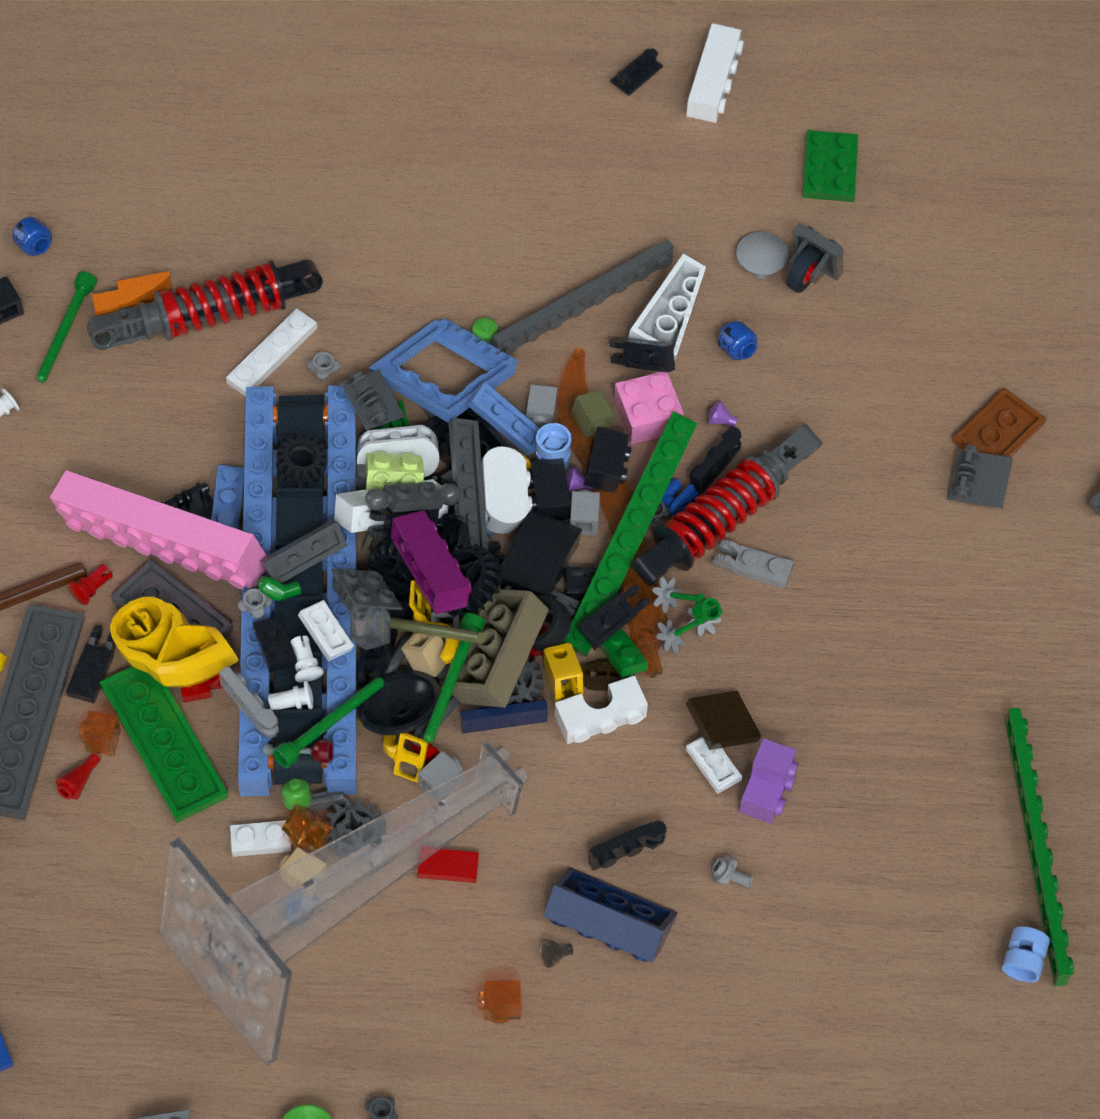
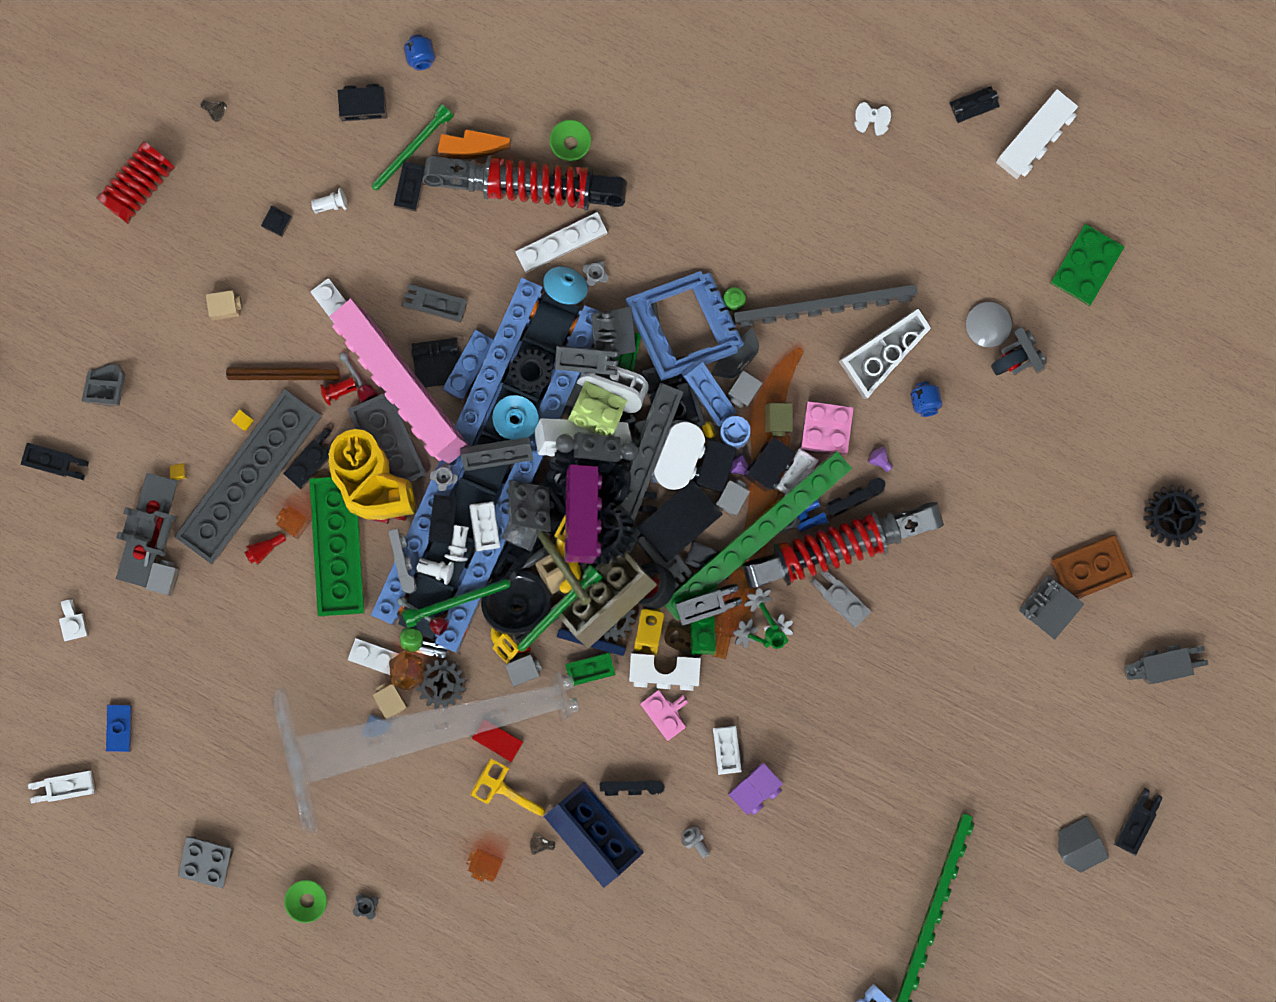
camera: 30 degrees right, 25 degrees up
(36, 502) = (328, 297): none -> white plate
(79, 361) = (409, 186): none -> black plate
(121, 573) = (365, 391): none -> hinge
(160, 458) = (435, 303): none -> dark grey hinge
(234, 245) = (568, 129): none -> bright green piece
(276, 590) = (462, 476): green arm -> none
(297, 384) = (565, 285): none -> medium azure dish
(305, 511) = (519, 408): none -> medium azure dish
(357, 427) = (585, 360): none -> dark grey hinge
(475, 912) = (499, 787): none -> yellow piece
(518, 384) = (727, 366): none -> dark grey piece
(522, 741) = (591, 669): none -> green plate
(532, 122) = (880, 118): none -> white piece
(624, 757) = (665, 714): none -> bright pink plate
(639, 458) = (802, 466): none -> white plate
(644, 354) = (842, 383): black hinge -> none
(723, 720) = (750, 721): dark brown tile -> none
(1052, 353) = (1173, 506): none -> black gear

